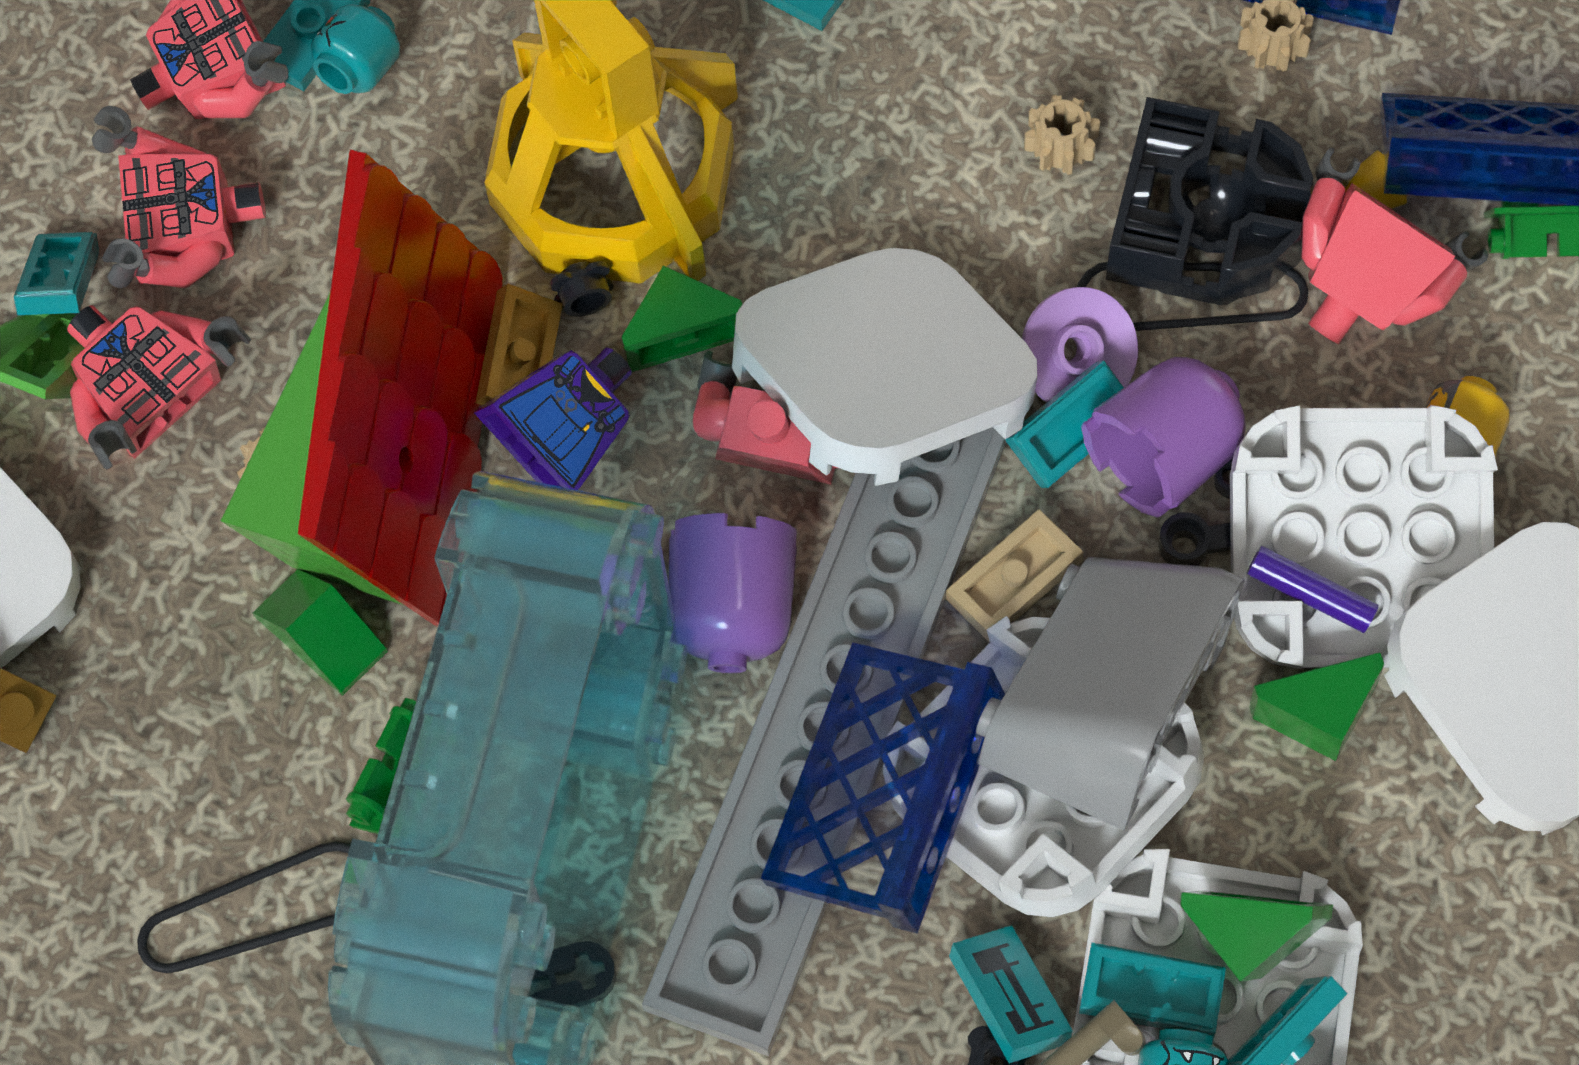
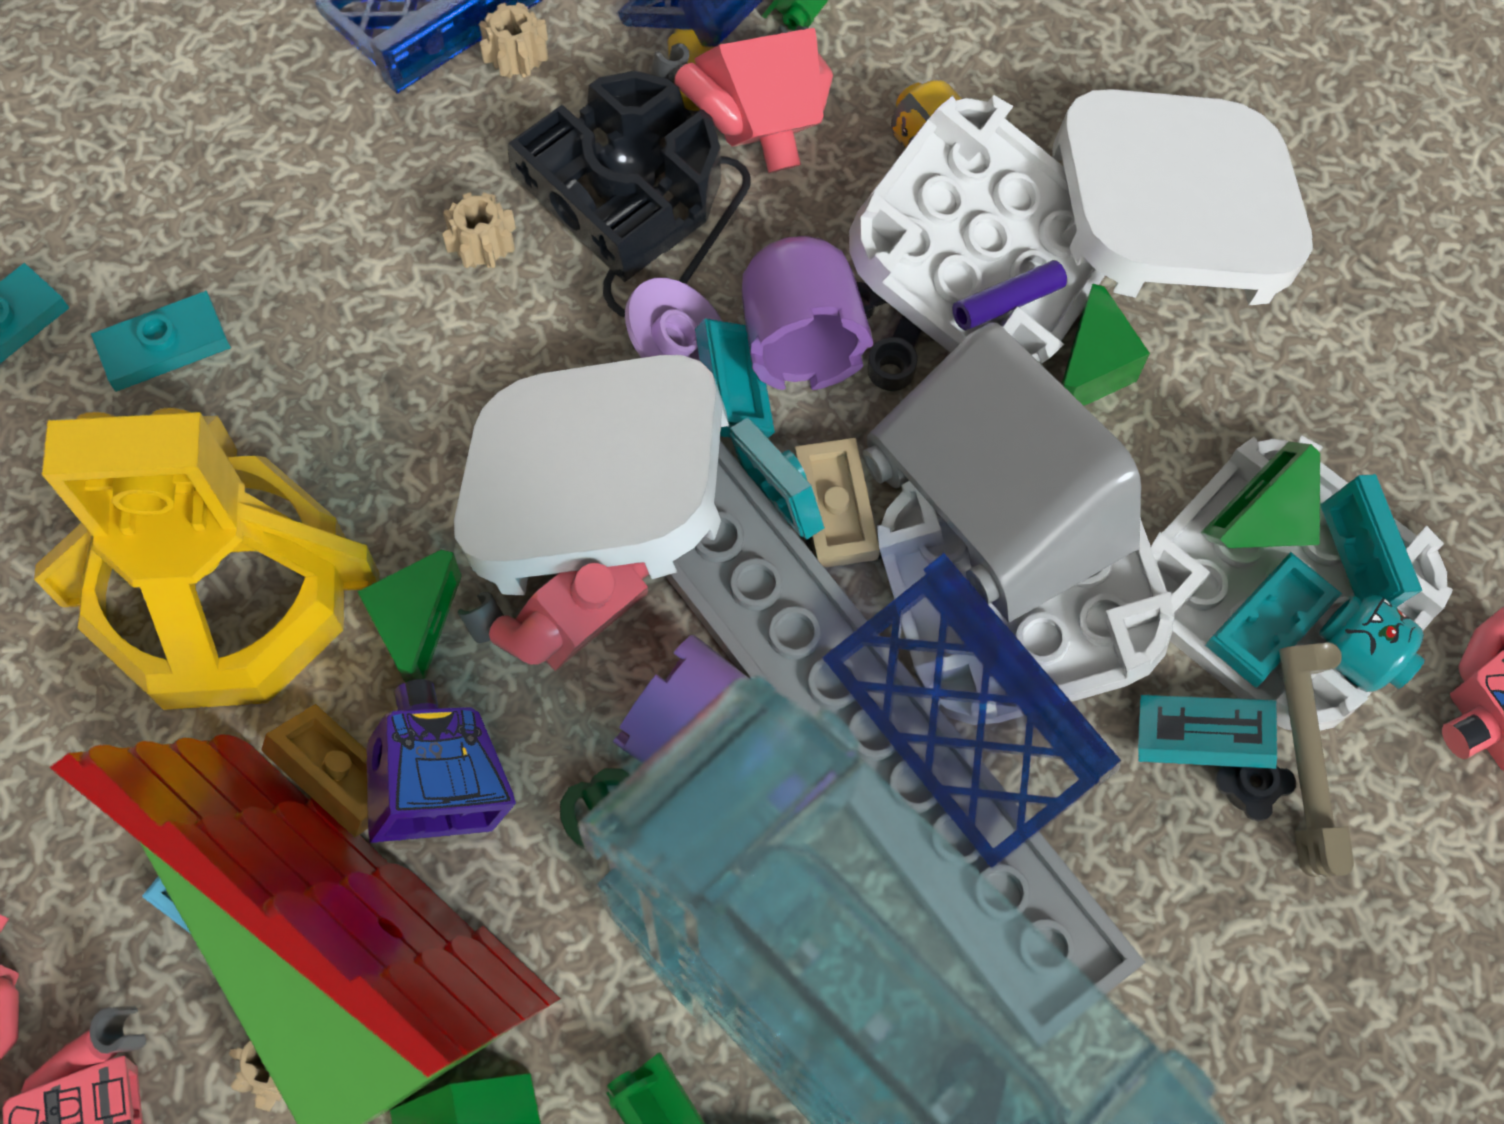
camera: 65 degrees left, 0 degrees up
(583, 288) = (316, 676): black plate -> none
(991, 510) = (778, 477): none -> teal plate

